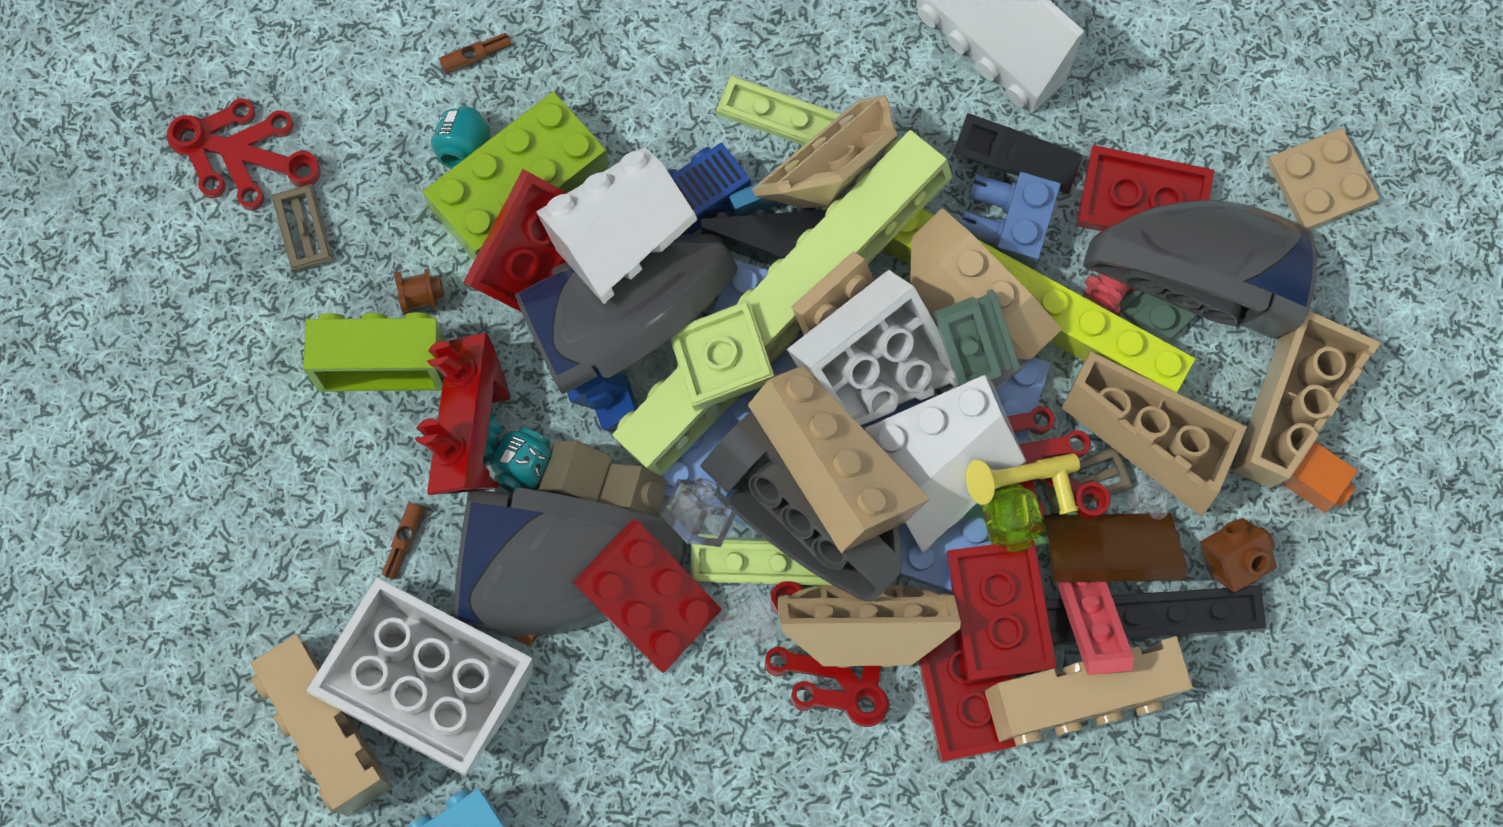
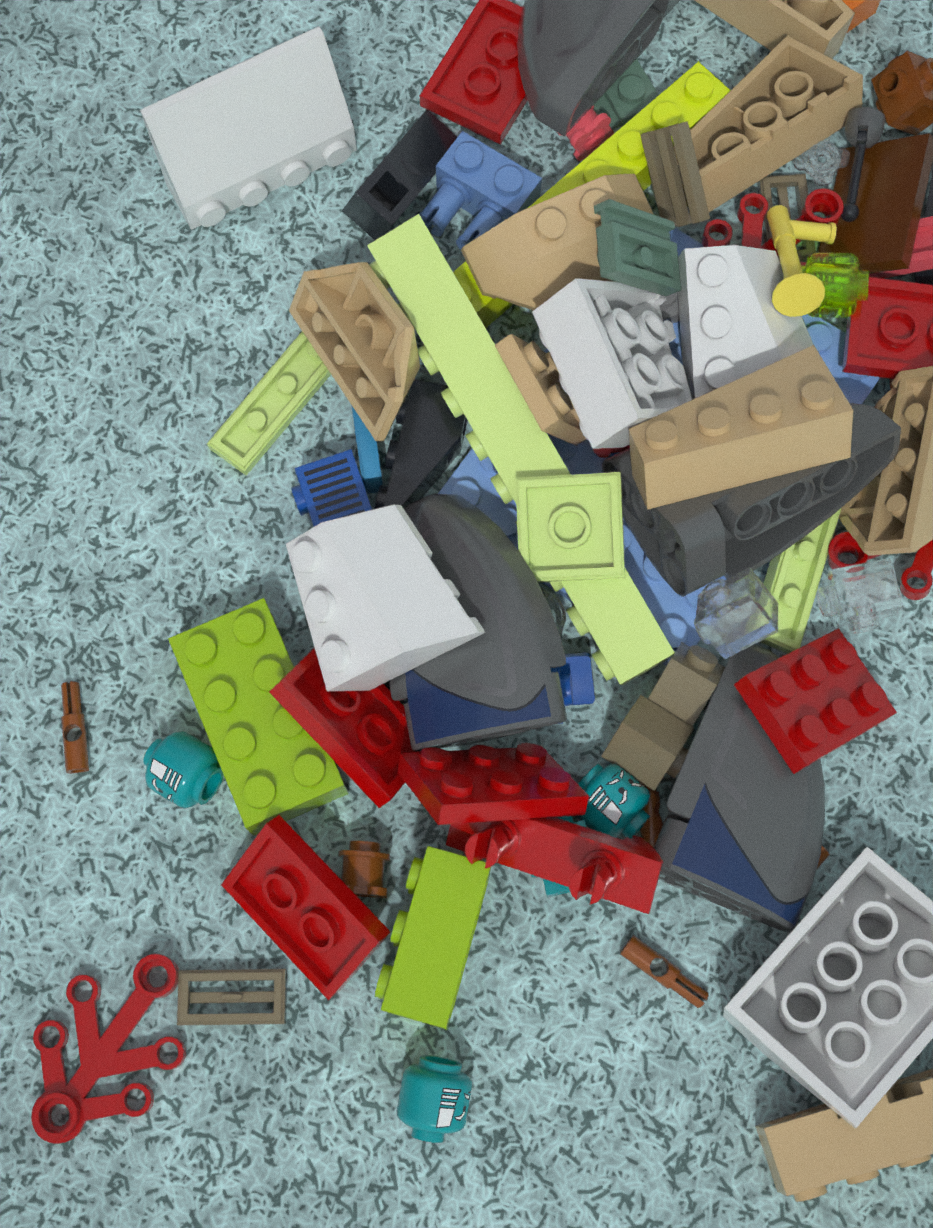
camera: 70 degrees left, 0 degrees up
(262, 390) = (434, 1098): none -> teal head
(377, 254) = (304, 907): none -> red plate
(502, 358) = (491, 784): none -> red plate
(1072, 364) = (668, 176): none -> dark tan tile
(1179, 517) = (863, 130): none -> hinge

